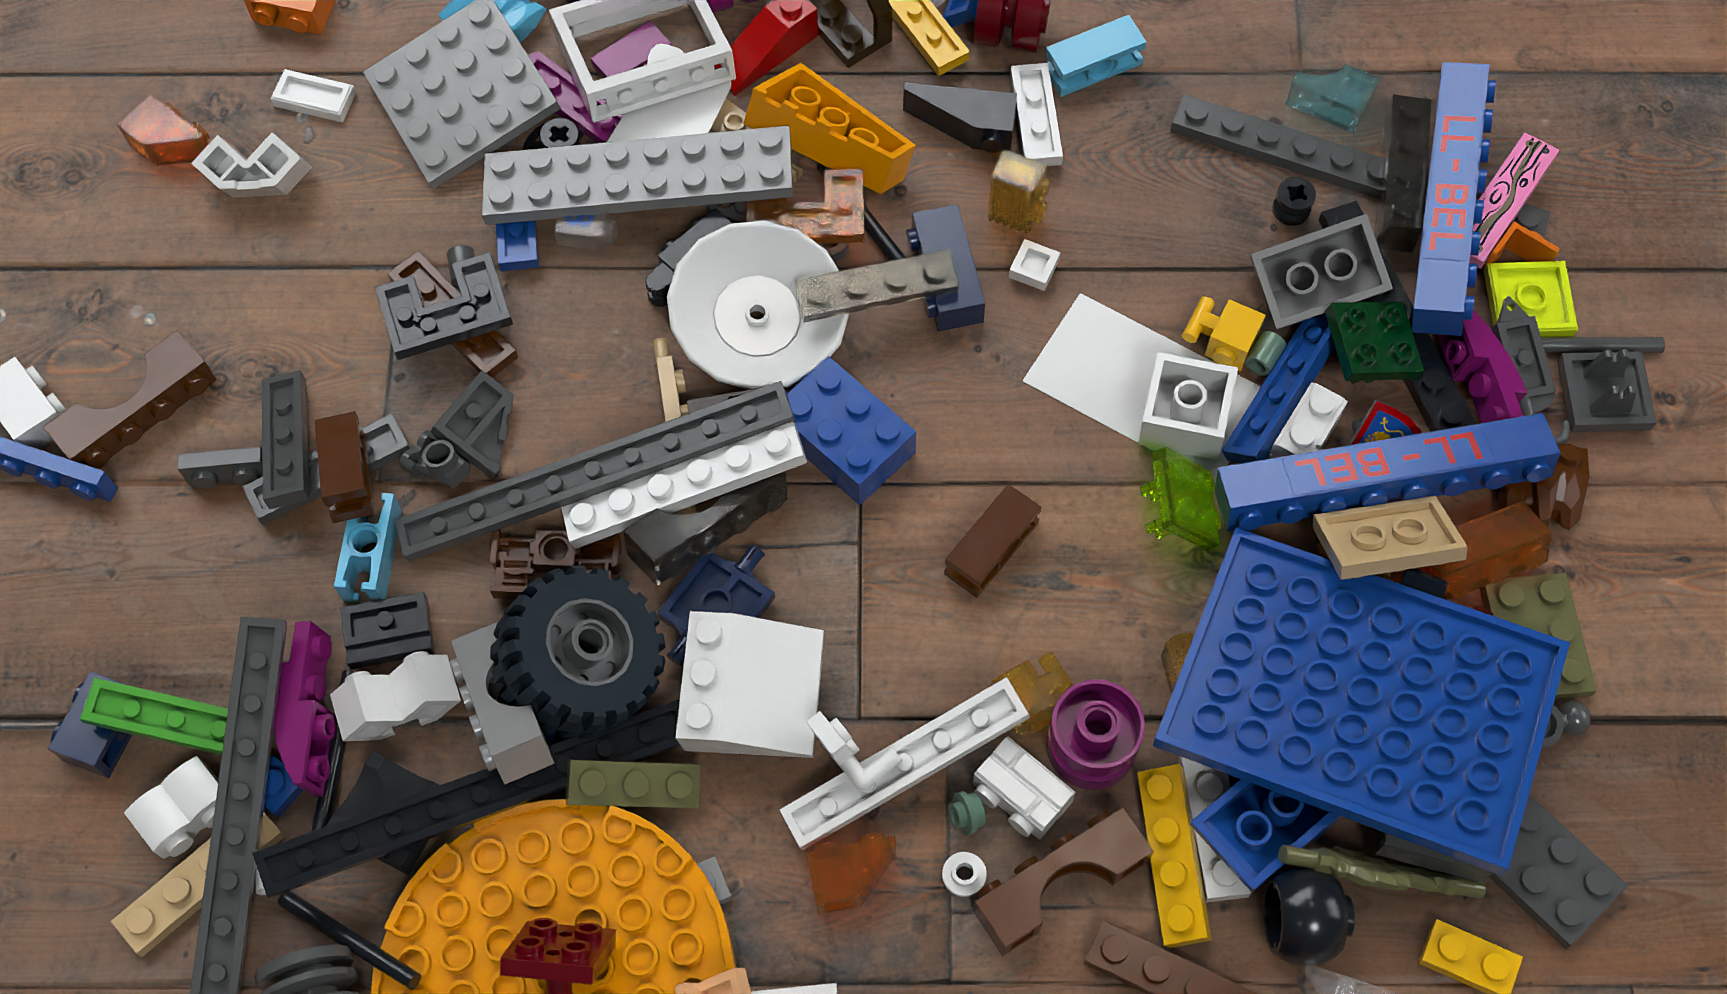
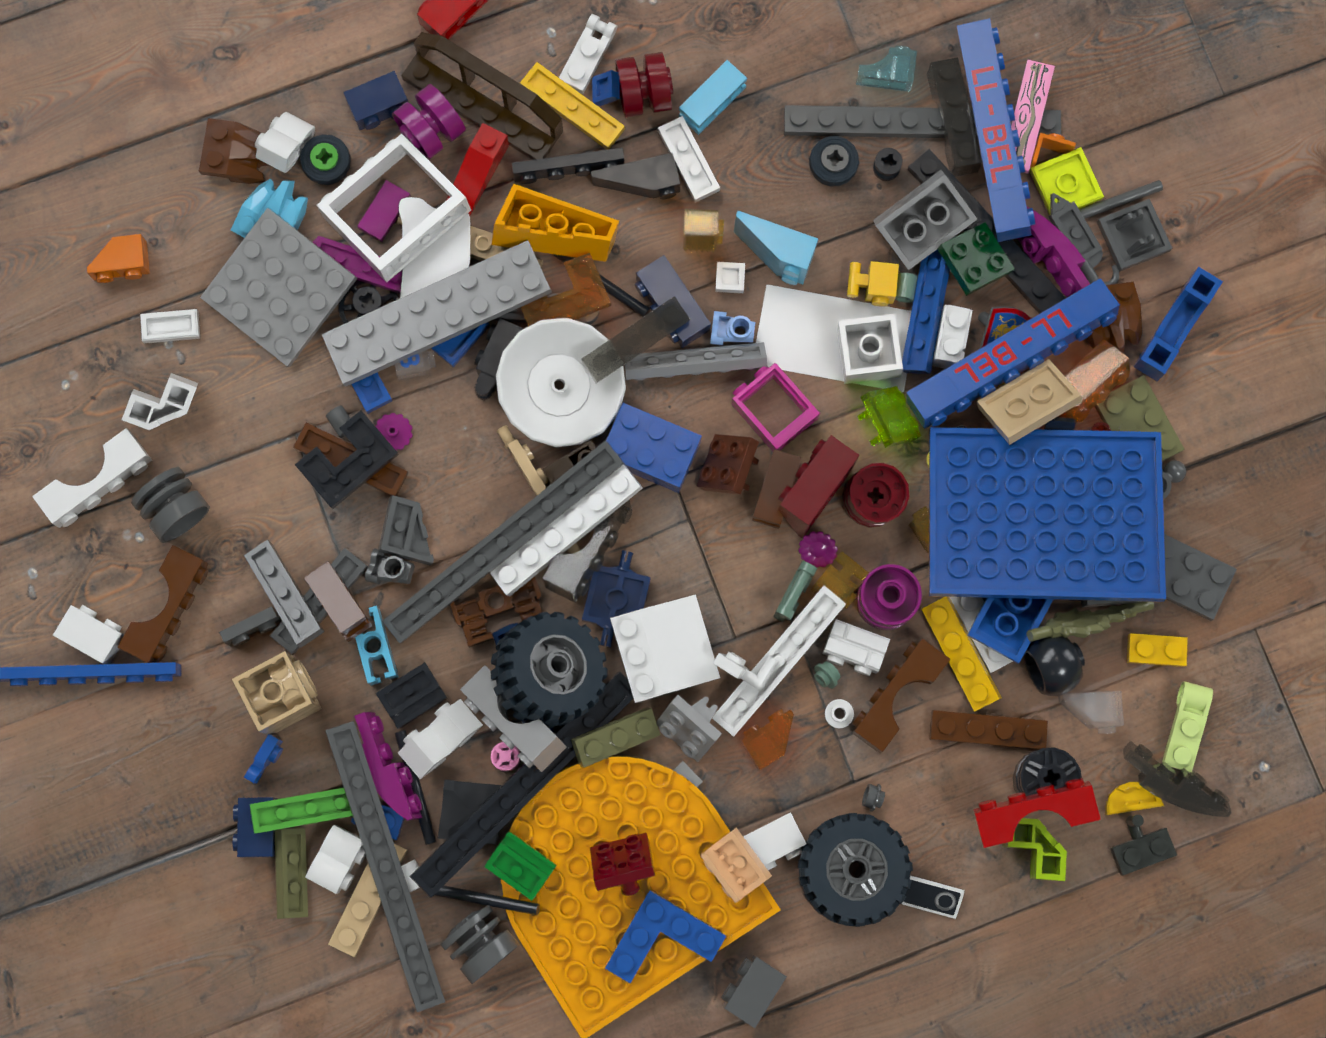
camera: 25 degrees left, 15 degrees up
(102, 815) = (291, 873): none -> olive plate
(158, 635) = (268, 752): none -> blue plate
(163, 134) = (80, 399): clear orange slope -> none
(172, 219) = (122, 459): none -> white arch
(199, 282) = (170, 504): none -> dark grey wheel
(206, 552) = (277, 693): none -> tan brick
(419, 909) = (520, 865): none -> green plate
(466, 750) = (502, 753): none -> bright pink wheel
(526, 303) = (395, 430): none -> magenta piece
(654, 227) = (457, 347): none -> blue tile
(742, 806) = (690, 726): none -> light grey plate
(874, 70) = (556, 167): none -> black plate
(938, 483) = (728, 464): none -> copper plate
(947, 347) = (697, 361): none -> light grey plate
(973, 672) = (798, 585): none -> sand green plate
(1012, 325) = (724, 328): none -> light blue plate
(1019, 638) = (818, 549): none -> magenta piece
(1041, 474) = (801, 423): none -> dark pink window
(1048, 542) = (816, 484): none -> dark red slope
(1112, 241) = (780, 248): none -> medium azure slope
(1133, 569) = (888, 486): none -> dark red wheel
(1234, 185) = (828, 170): none -> black wheel
(1637, 520) = (1177, 324): none -> blue arch

